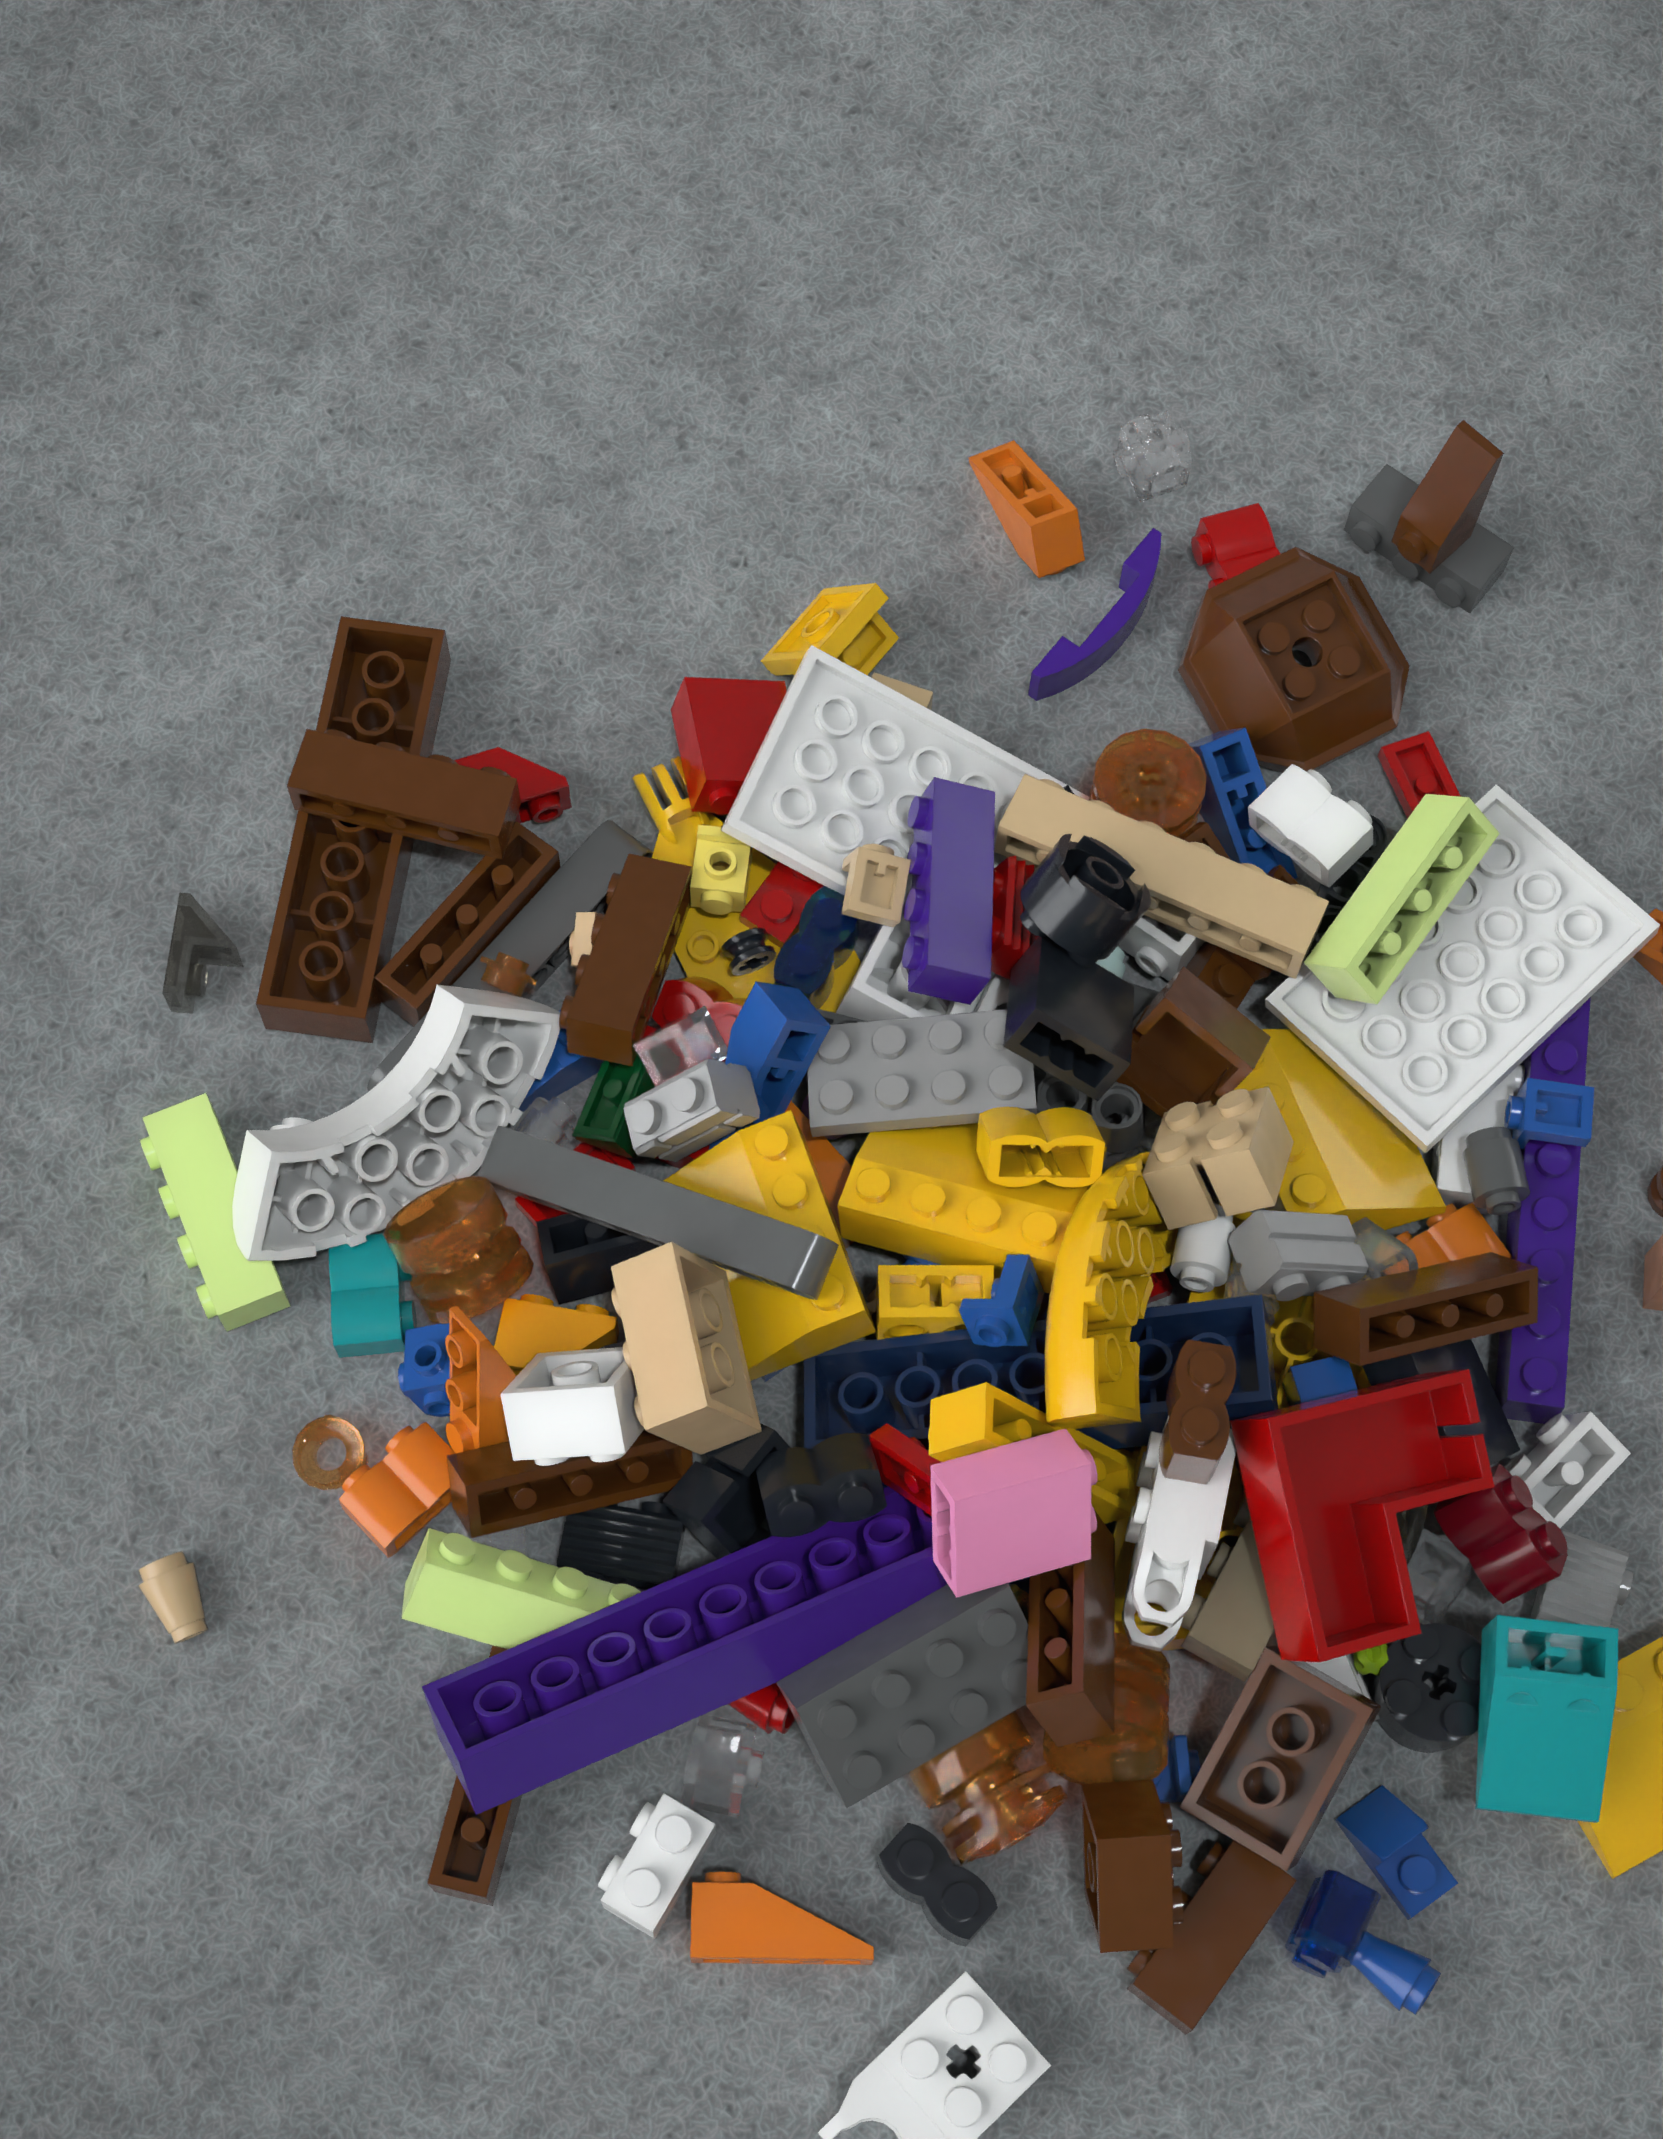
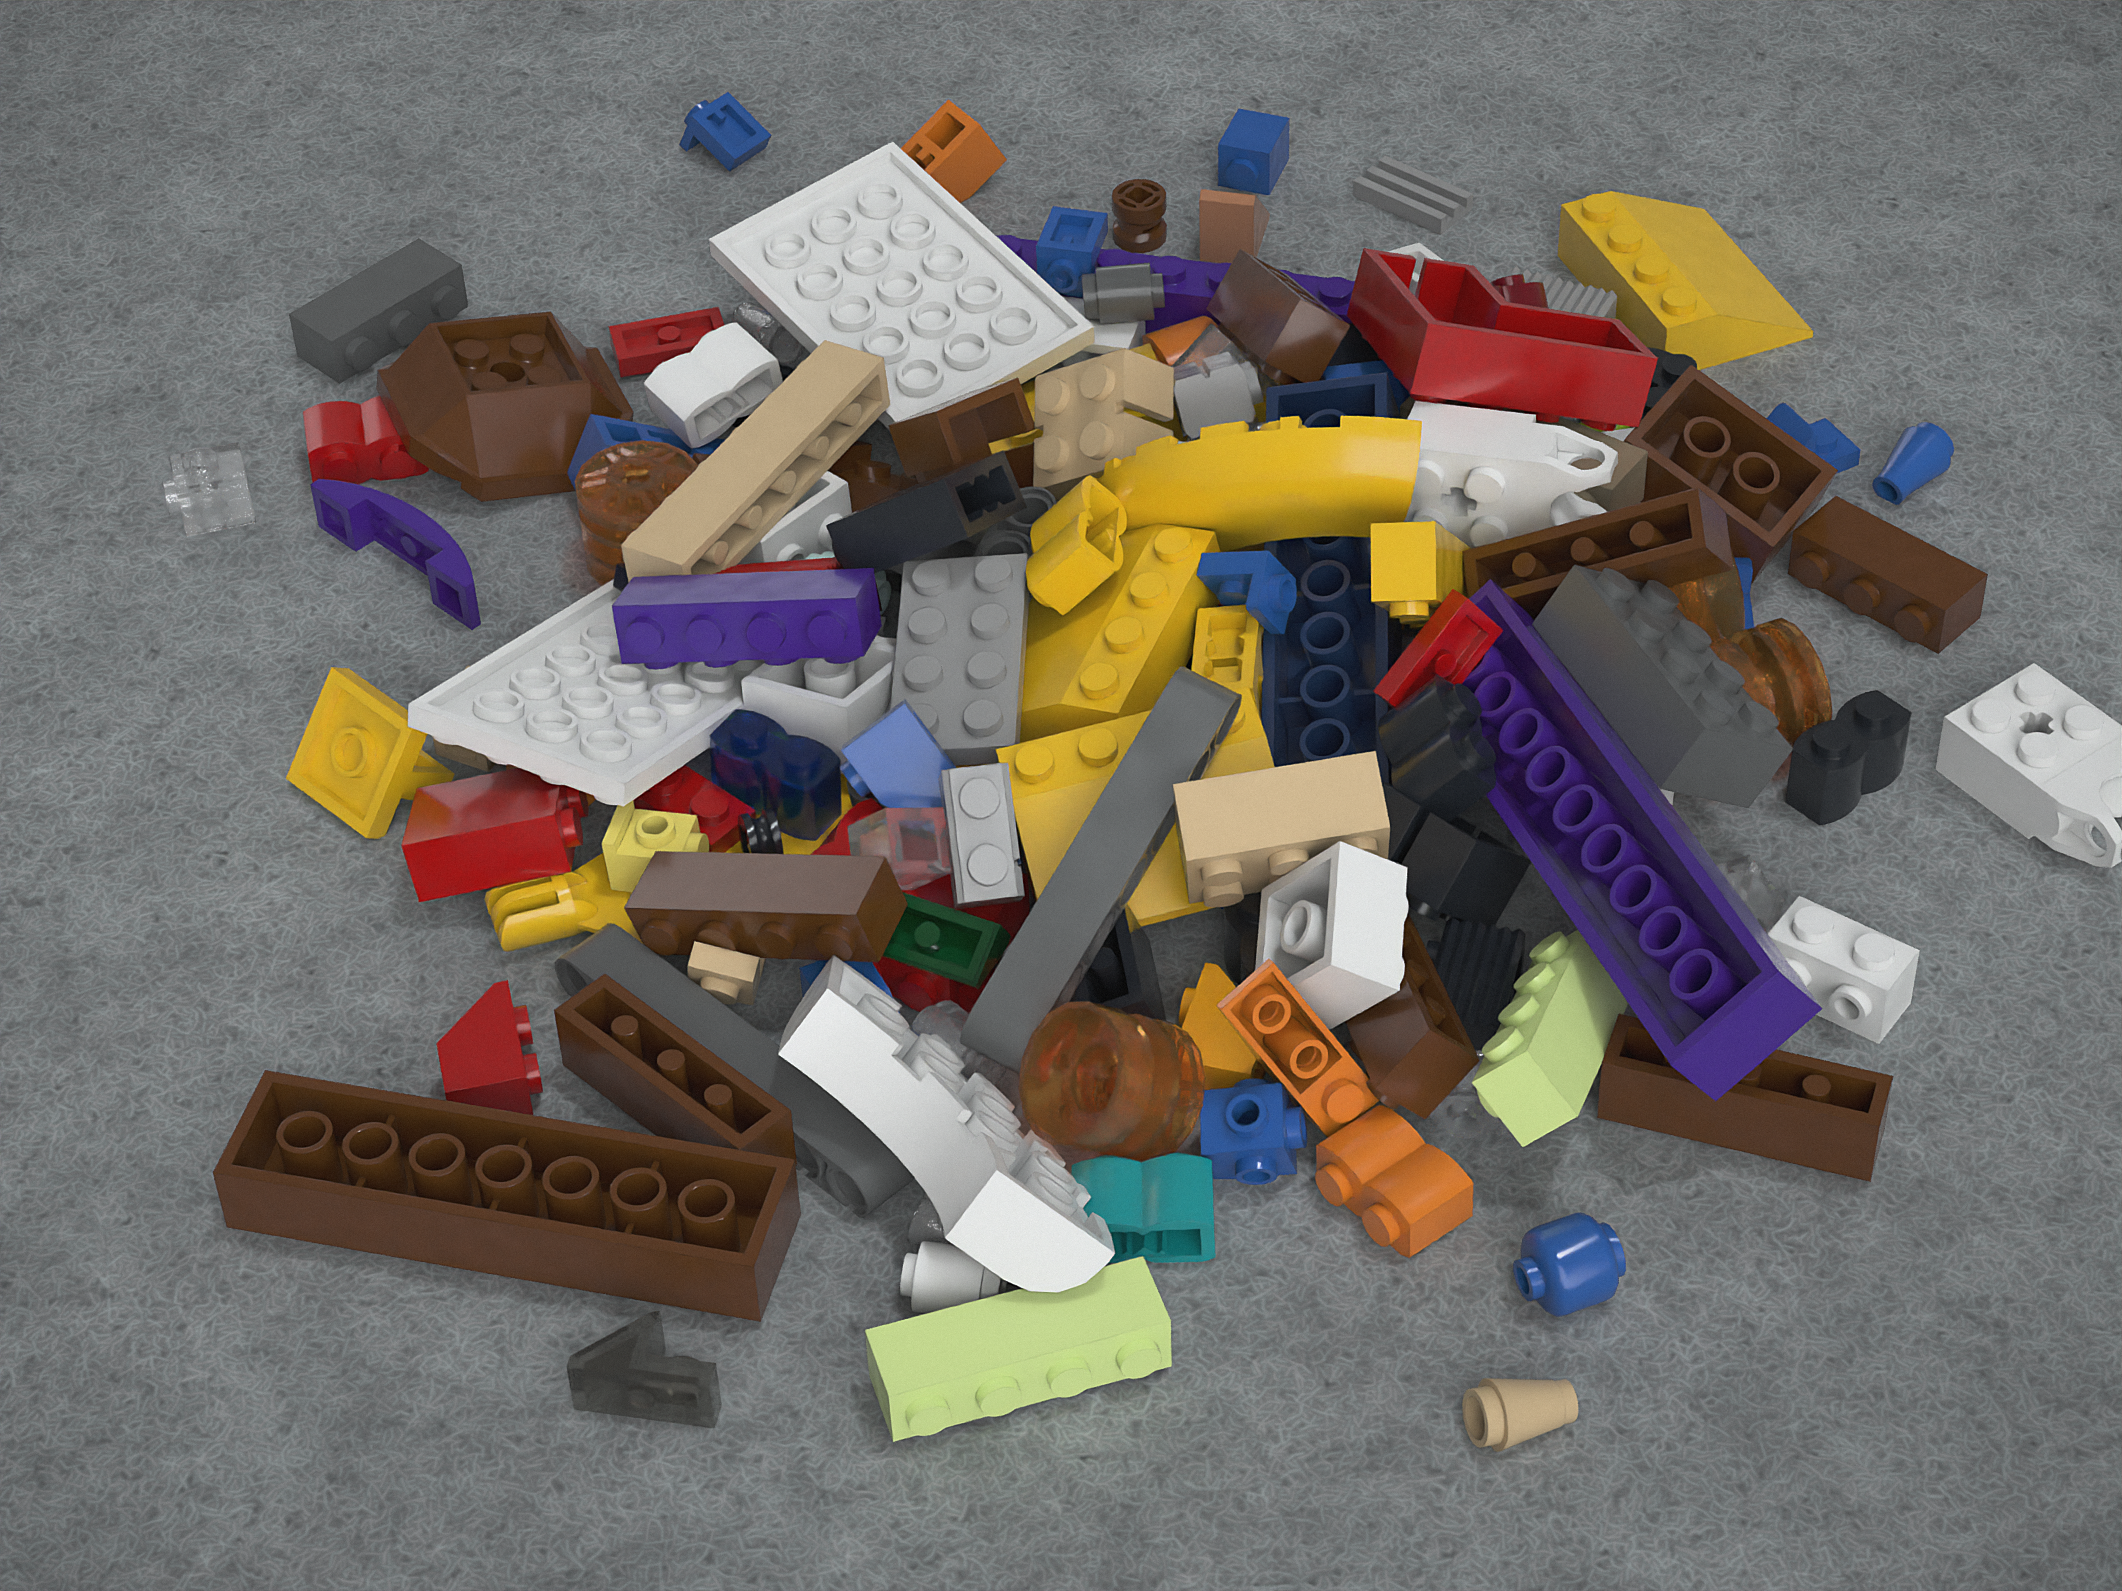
camera: 80 degrees left, 25 degrees down
(310, 1440) = (1343, 1236): clear orange piece -> none
(314, 1632) = (1569, 1264): none -> blue head
(404, 792) = (500, 1090): reddish brown brick -> none
(507, 974) = (759, 1026): clear orange plate -> none
(755, 1926) = (1902, 885): orange slope -> none
(875, 884) = (726, 671): tan bracket -> none
(1012, 1511) = (1502, 543): bright pink brick -> none
(1031, 509) = (245, 592): orange slope -> none
(1083, 899) = (796, 489): black brick -> none
(1130, 1866) = (1836, 585): reddish brown brick -> none
(1197, 1412) = (1416, 387): reddish brown brick -> none
(1331, 1923) = (1880, 467): clear blue brick -> none
(1401, 898) = (831, 290): yellowish green brick -> none
(1448, 499) = (375, 225): reddish brown slope -> none
(1545, 1717) = (1684, 287): teal slope -> none

